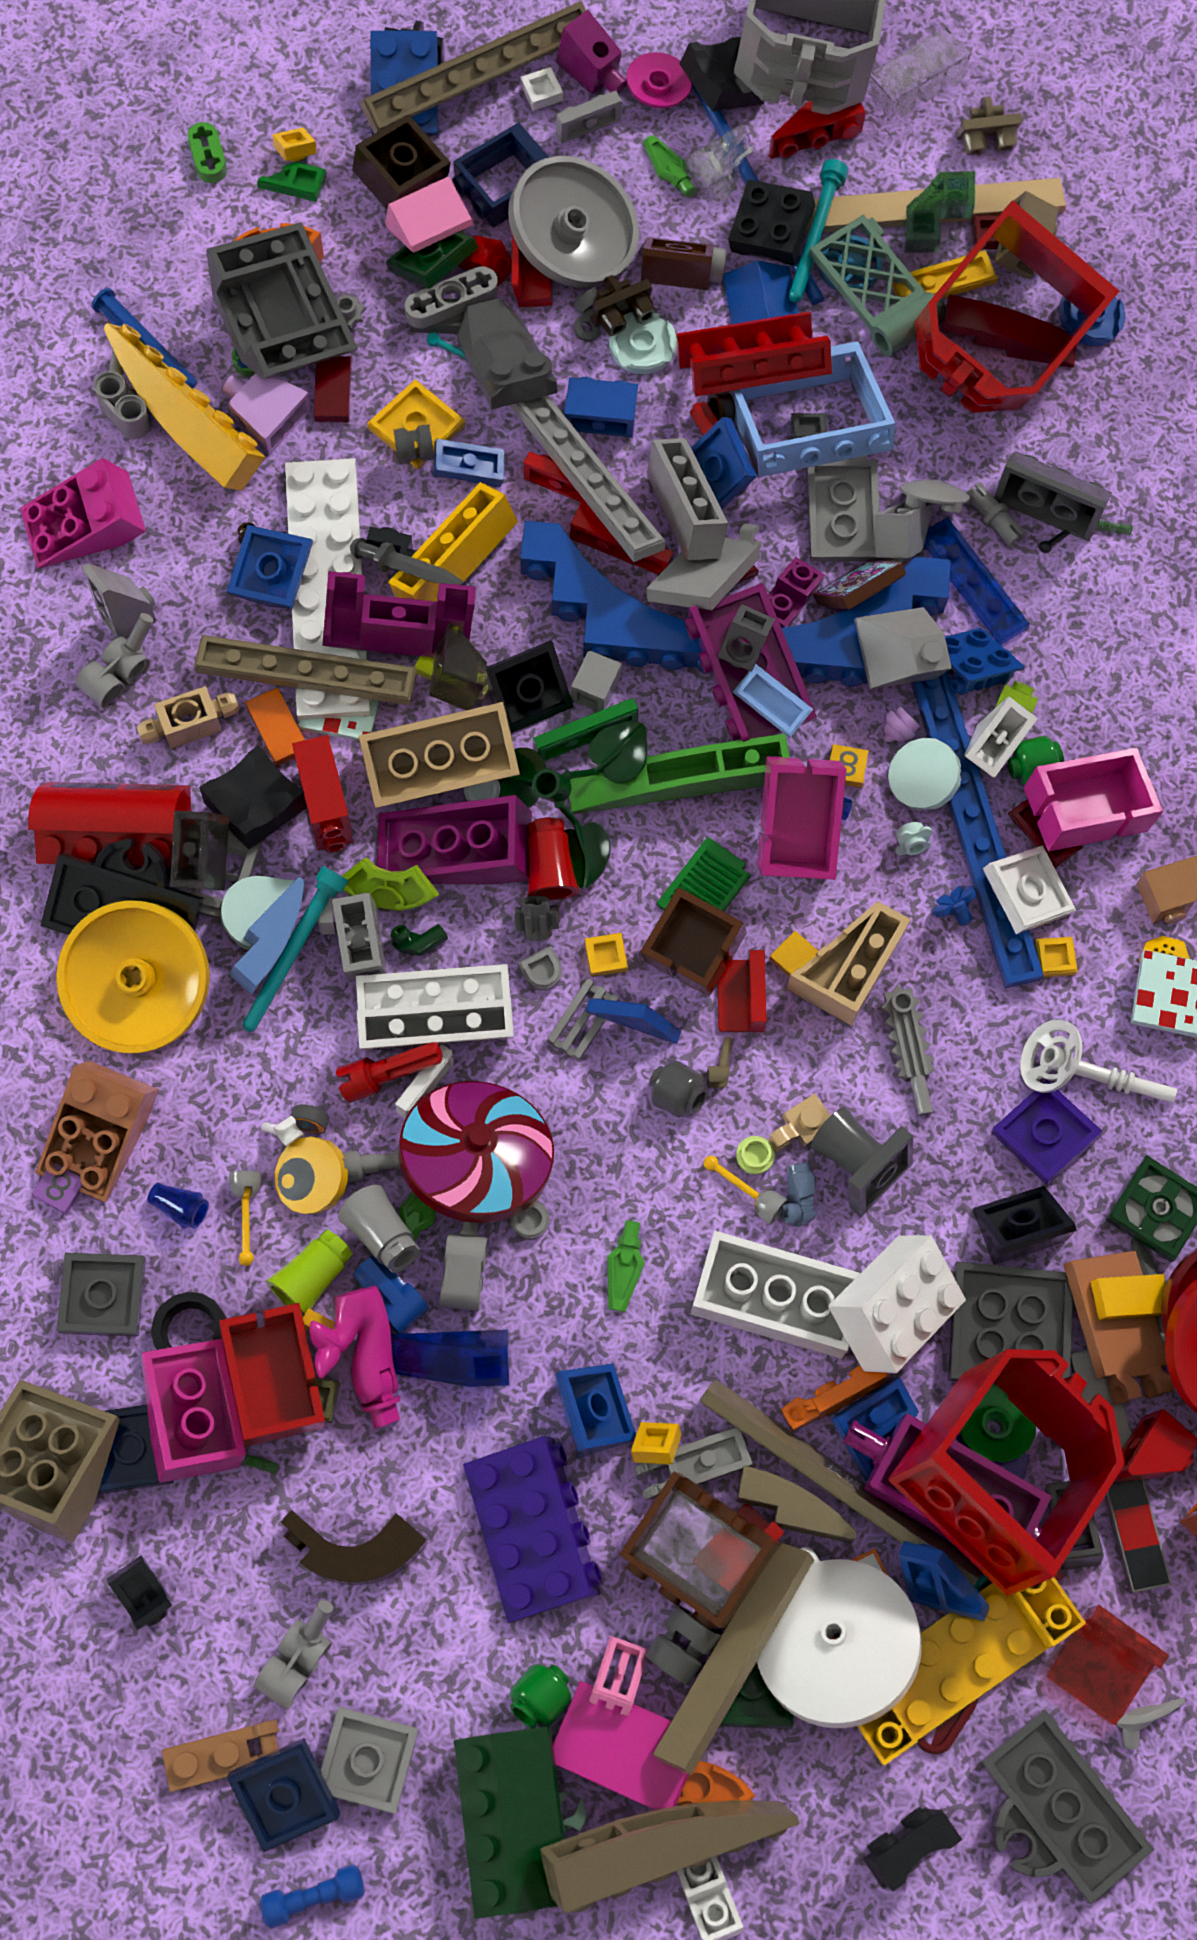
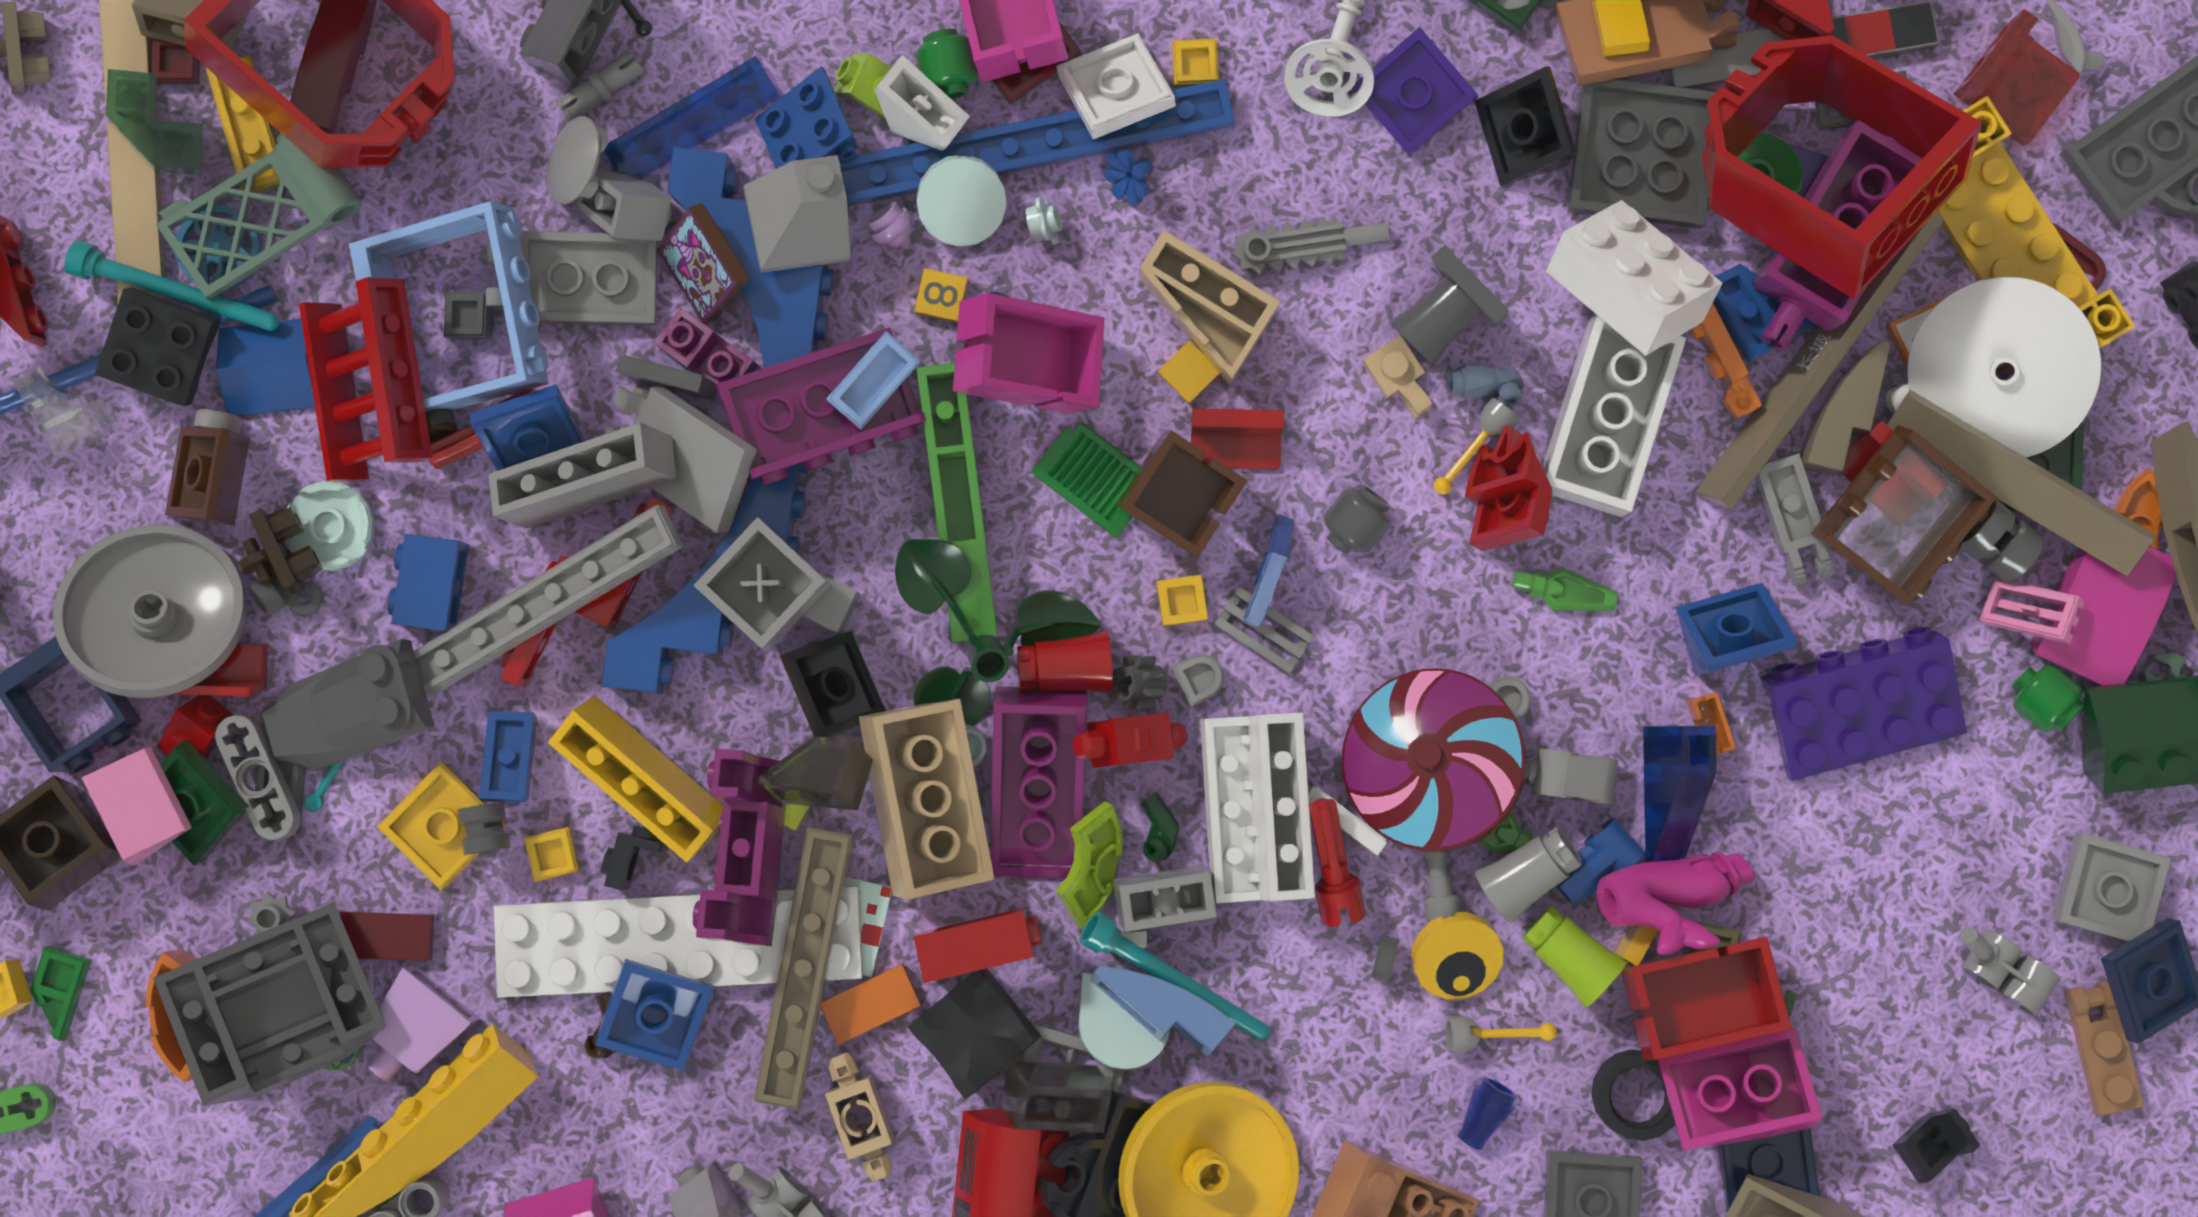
camera: 80 degrees left, 15 degrees up
(286, 1130) = (1406, 984): white hand -> none
(361, 1564) = (1904, 903): dark brown arch -> none
(386, 557) = (651, 863): dark grey sword -> none
(395, 499) = (552, 854): none -> yellow tile
(488, 907) = (1129, 740): none -> red piece
(517, 1392) = (1709, 712): none -> orange piece
(583, 730) = (890, 615): green tile -> none
(605, 622) = (762, 585): none -> light grey brick
(656, 1443) = (1774, 561): yellow tile -> none
(669, 165) = (53, 481): bright green piece -> none
(708, 1210) = (1509, 492): none -> red plate
(718, 1075) = (1336, 469): dark tan hand -> none
(750, 626) = (799, 407): dark grey brick -> none
(755, 1155) = (1435, 433): yellowish green plate -> none
(770, 556) = (667, 377): none -> dark grey tile
(938, 1583) = (1932, 265): blue wing -> none

